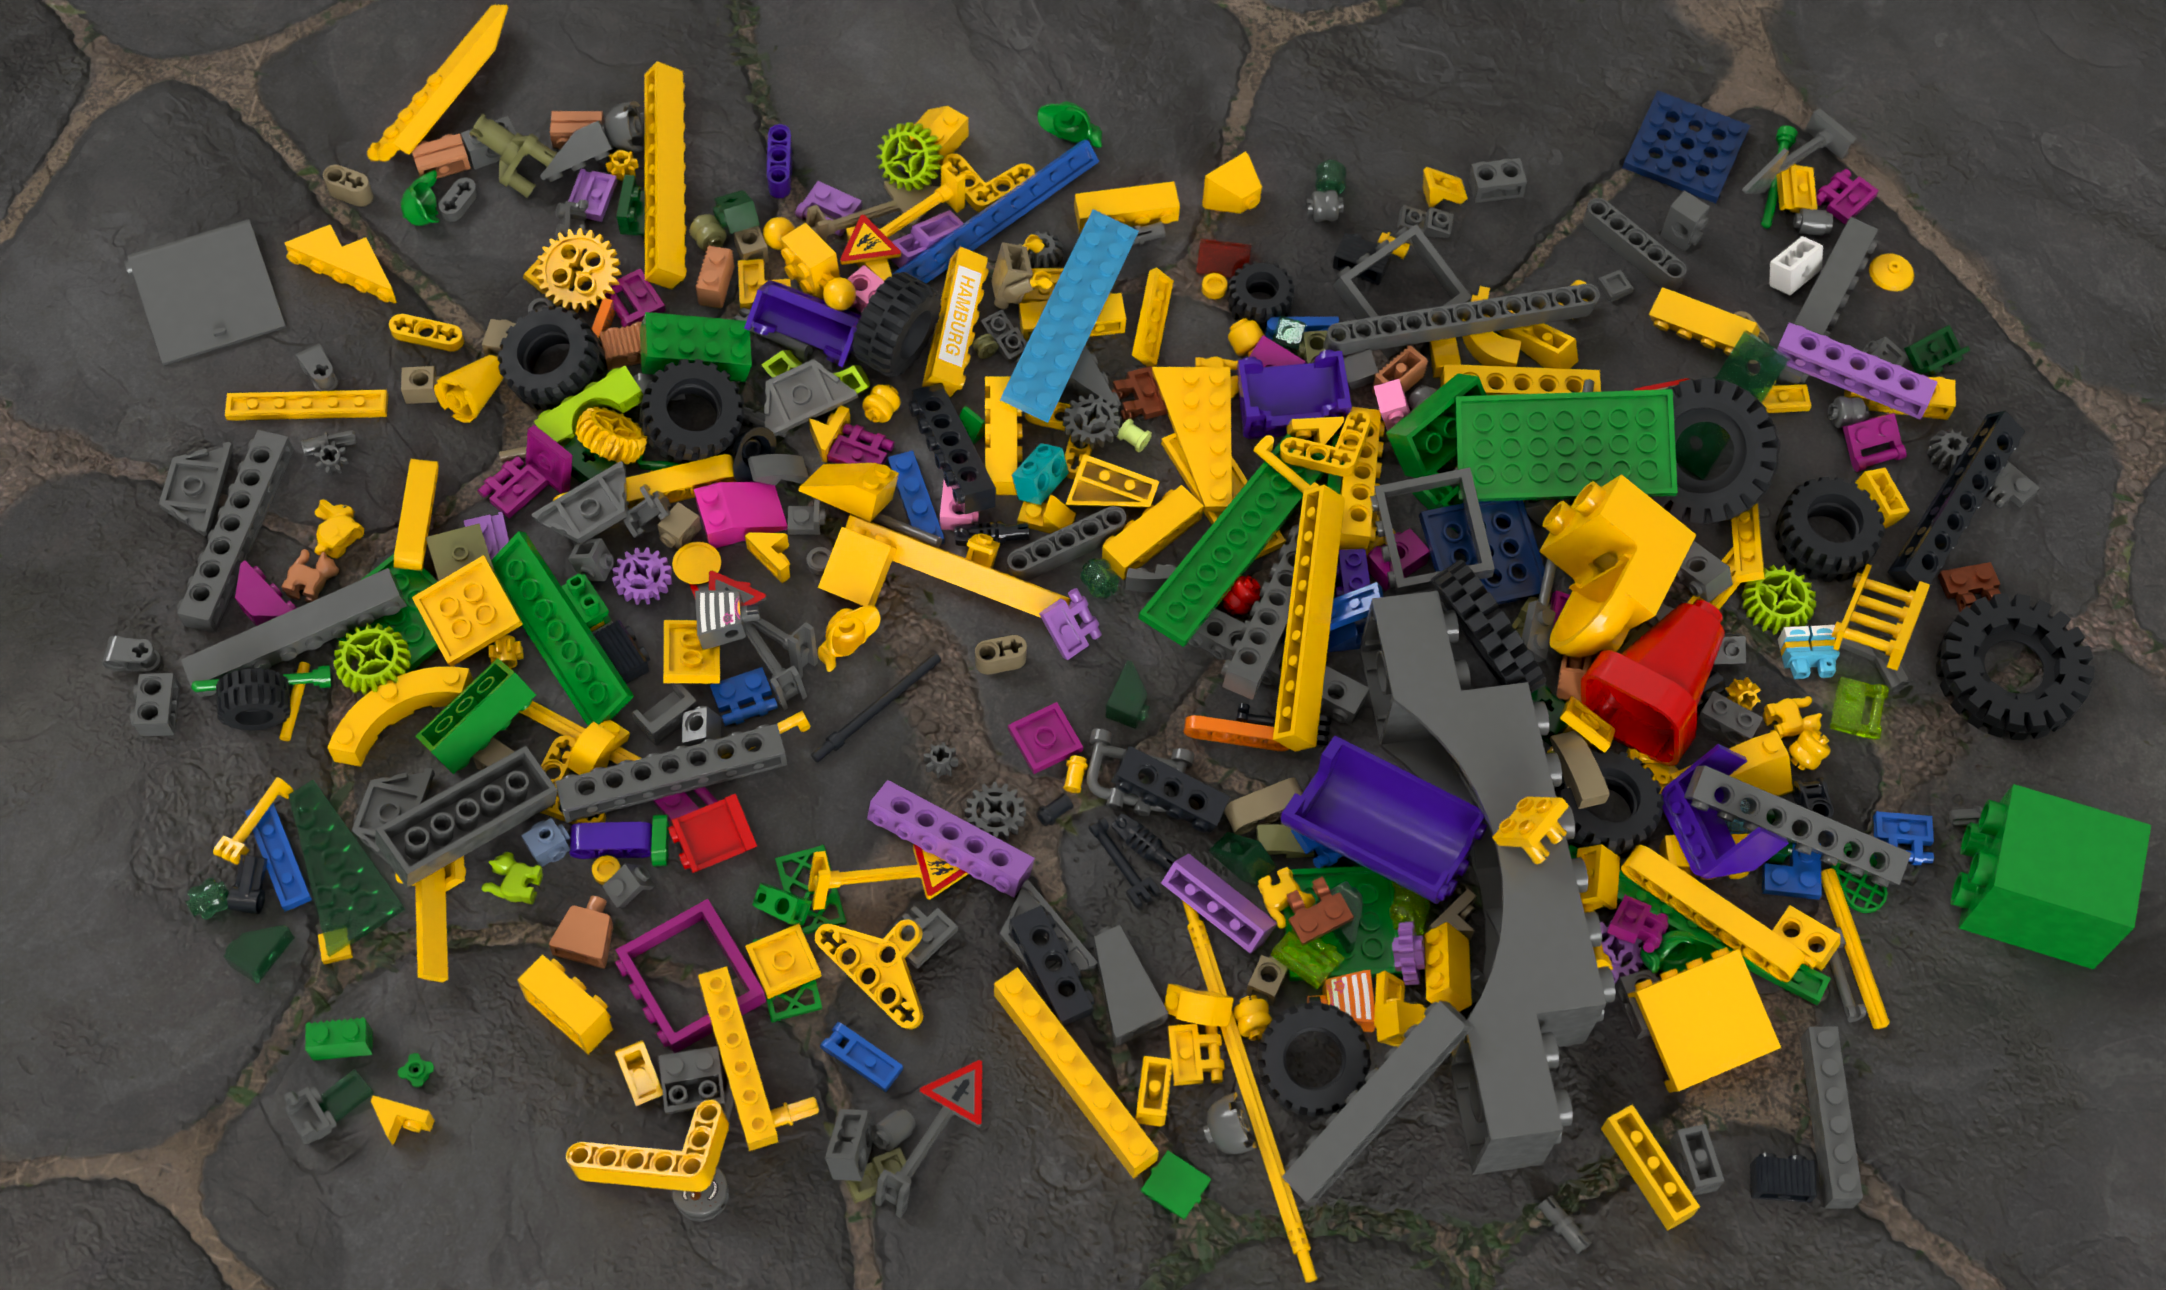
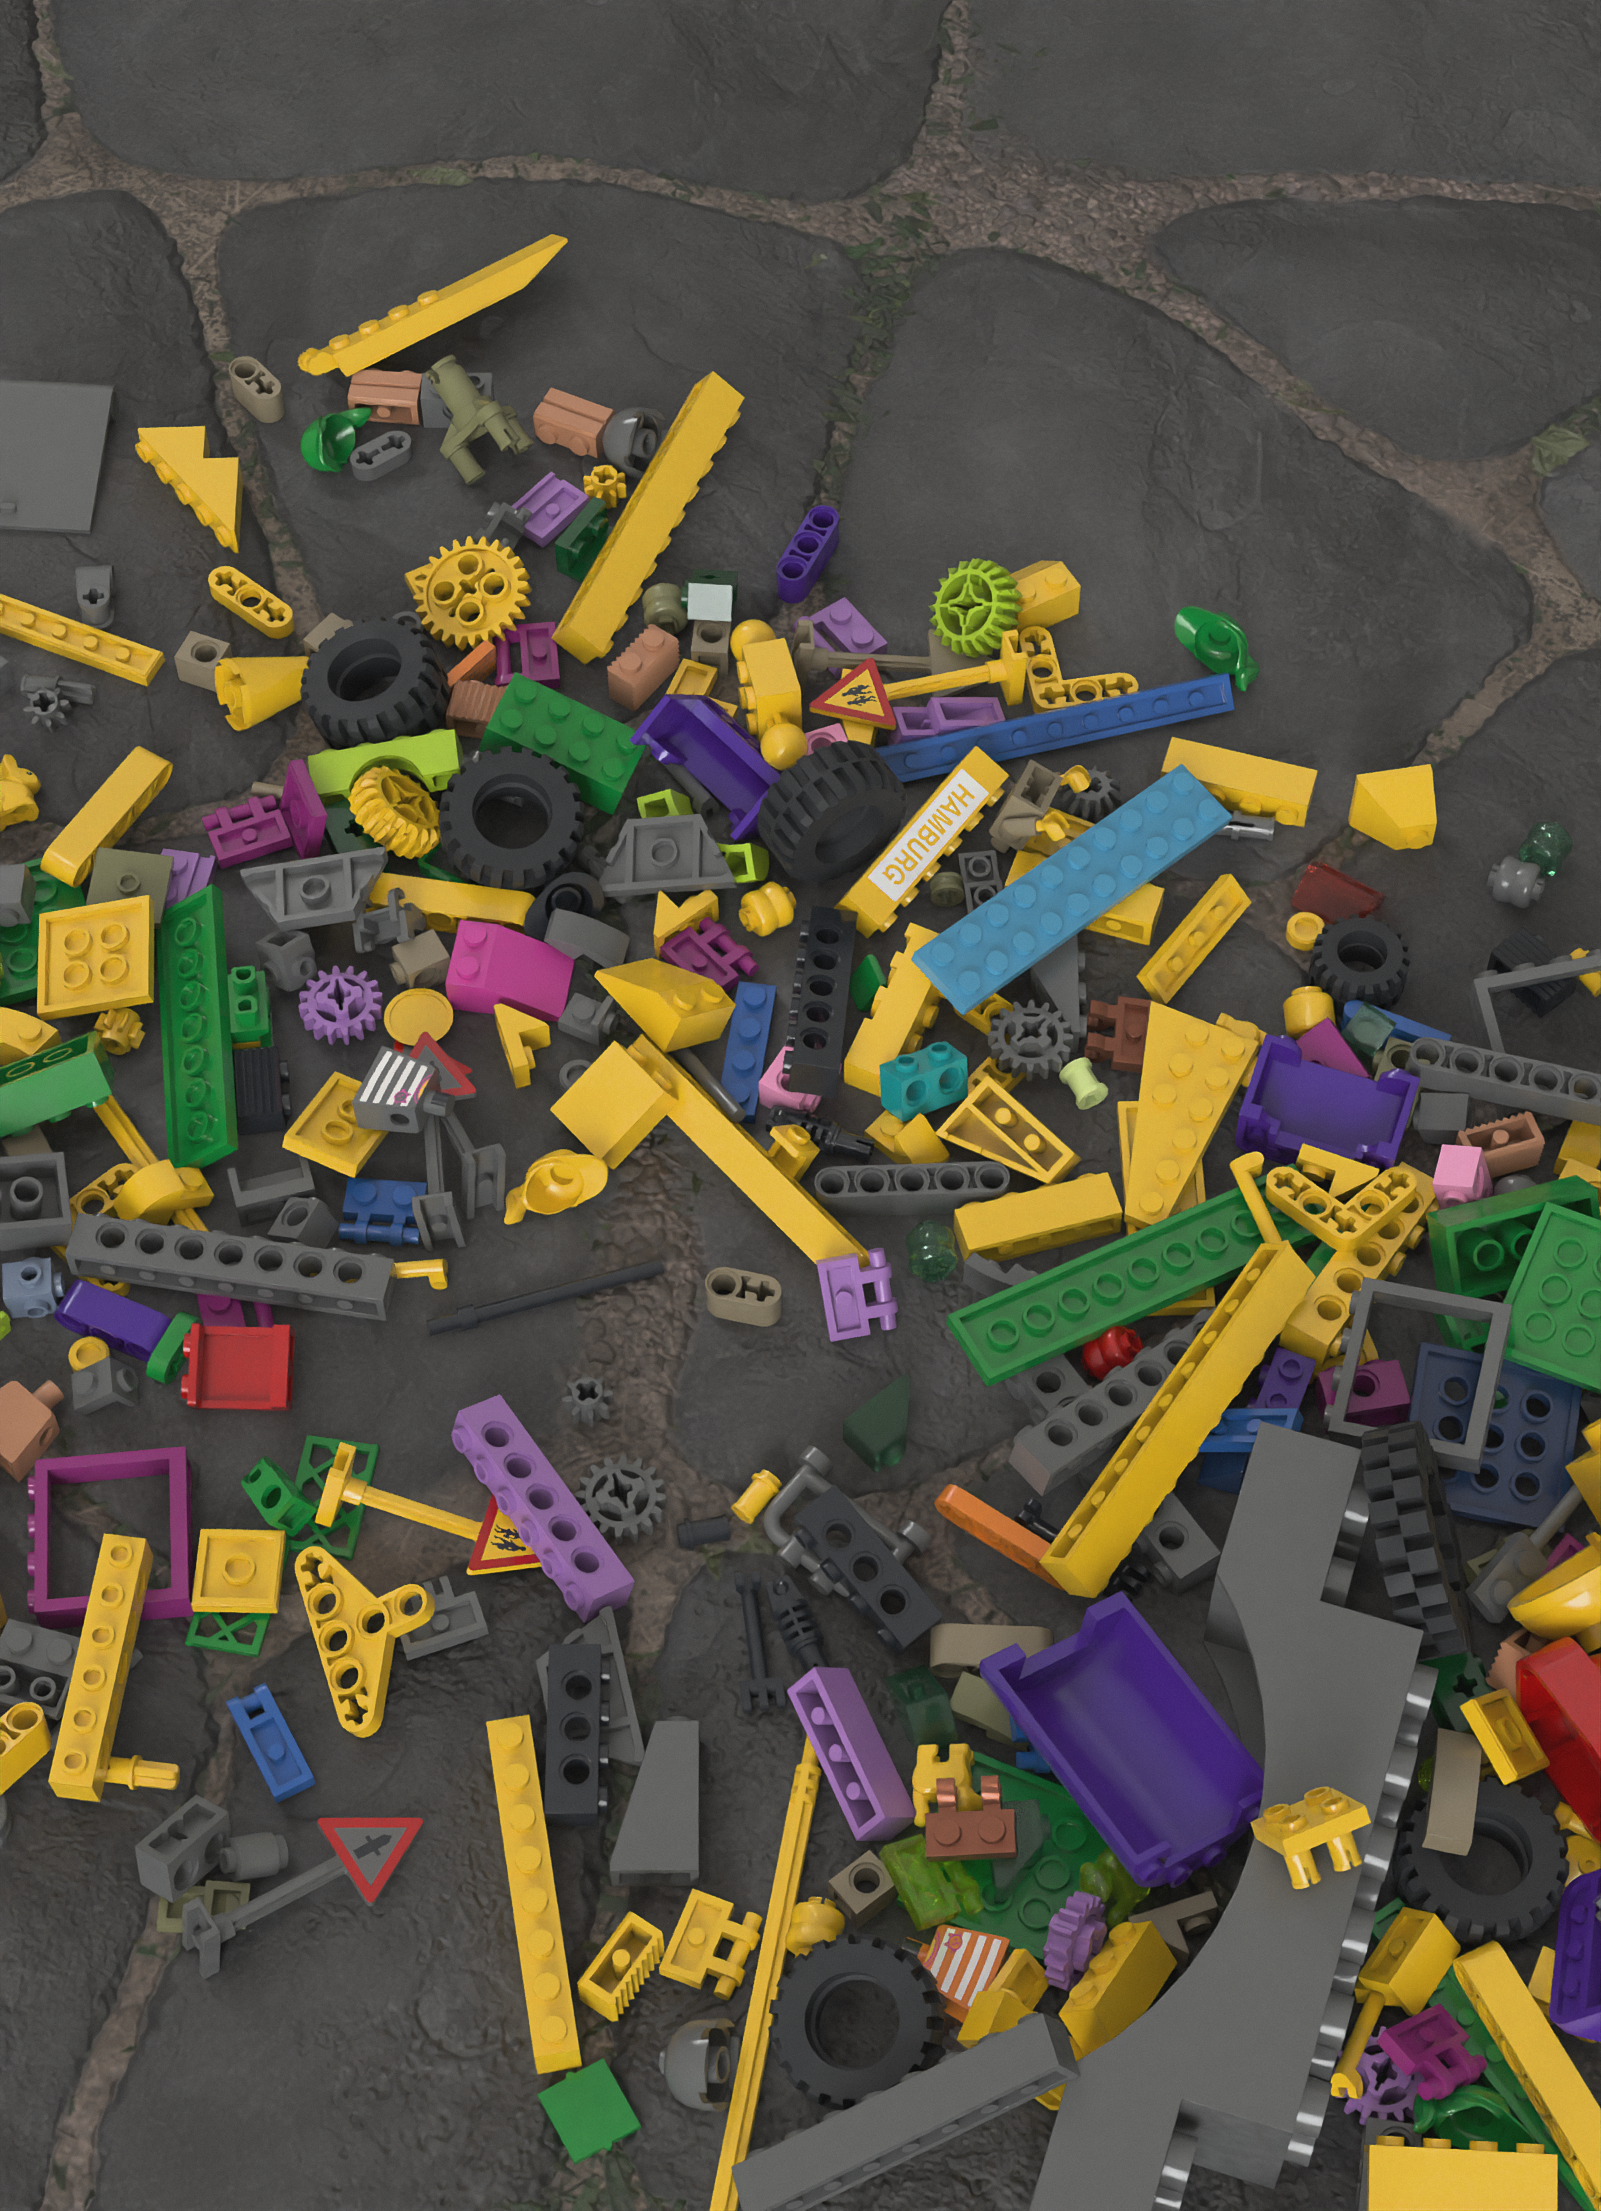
camera: 30 degrees right, 5 degrees down
(581, 146) = (561, 442): dark grey slope -> none
(1045, 738) = (742, 1431): magenta plate -> none
(1198, 1006) = (746, 1881): yellow brick -> none

